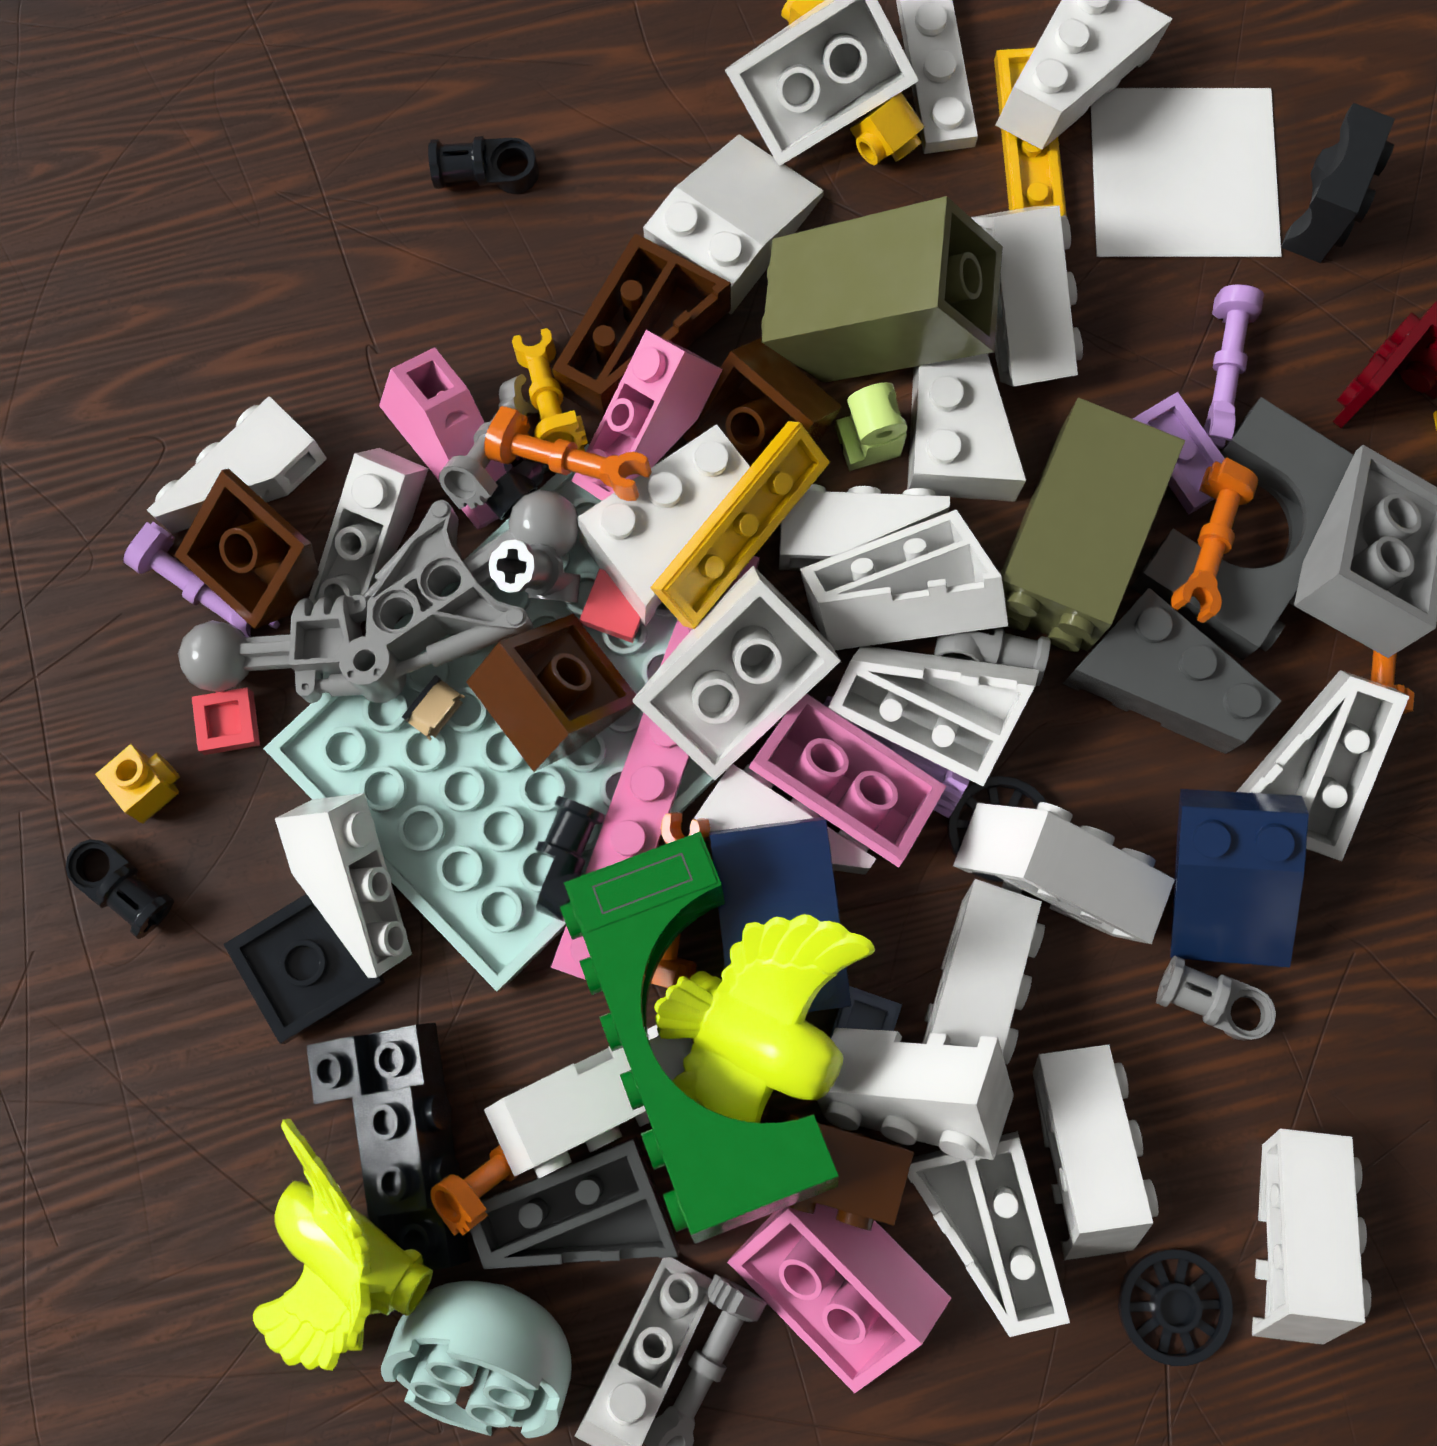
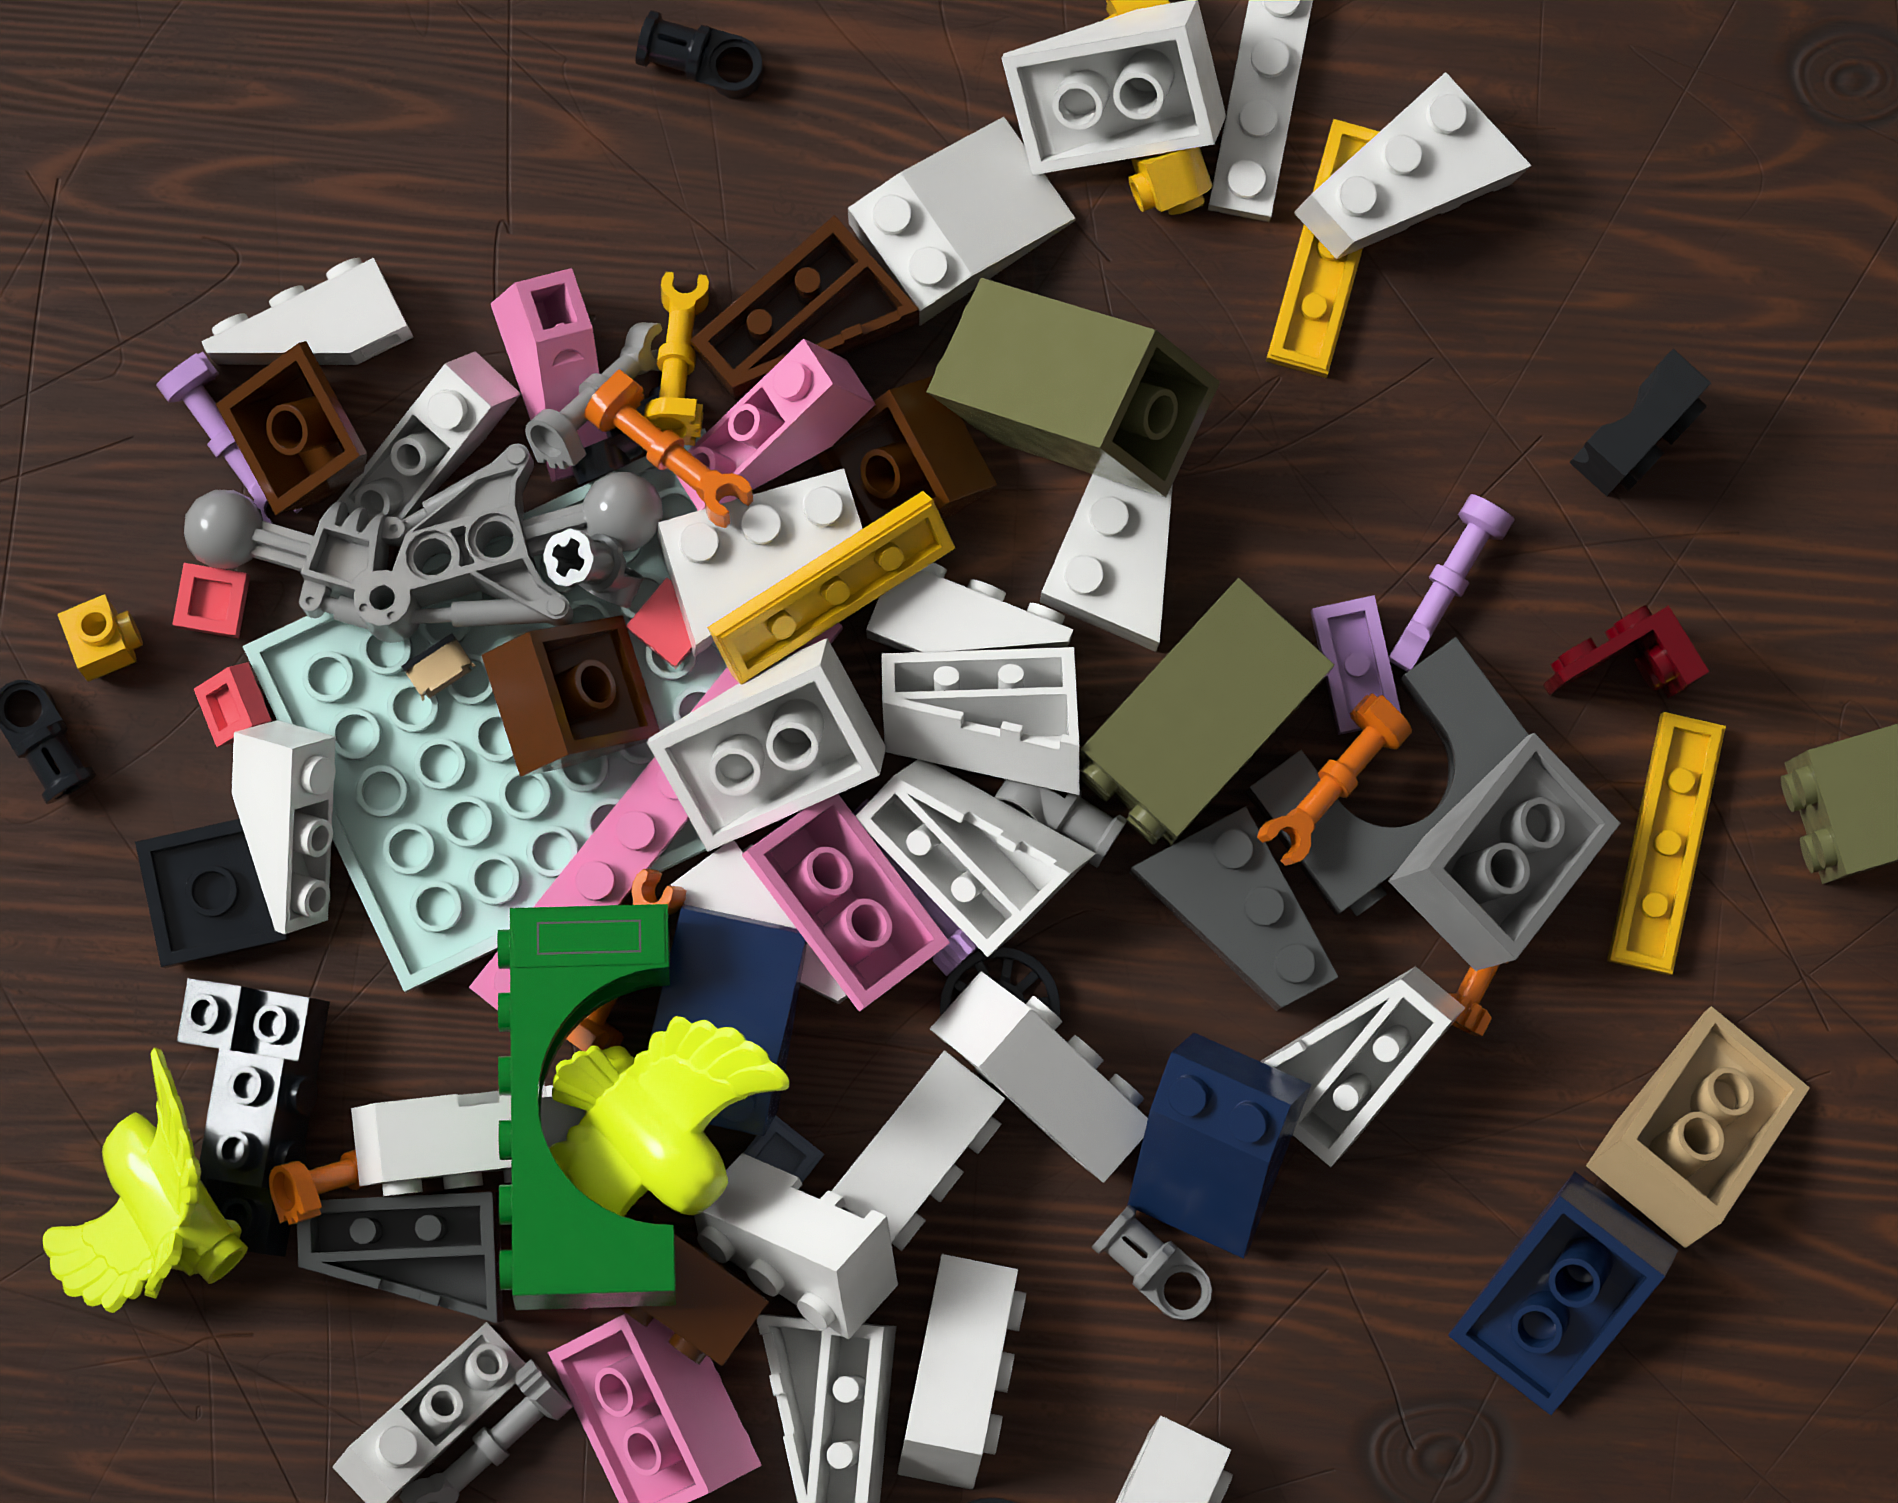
camera: 15 degrees right, 5 degrees up
(268, 796) = (231, 703): none -> coral plate
(490, 1328) = (285, 1331): light aqua cylinder -> none
(566, 846) = (528, 864): black connector -> none
(874, 429) = (1019, 520): yellowish green leg -> none
(1035, 296) = (1249, 427): white wedge -> none
(1185, 173) = (1496, 336): white sticker -> none

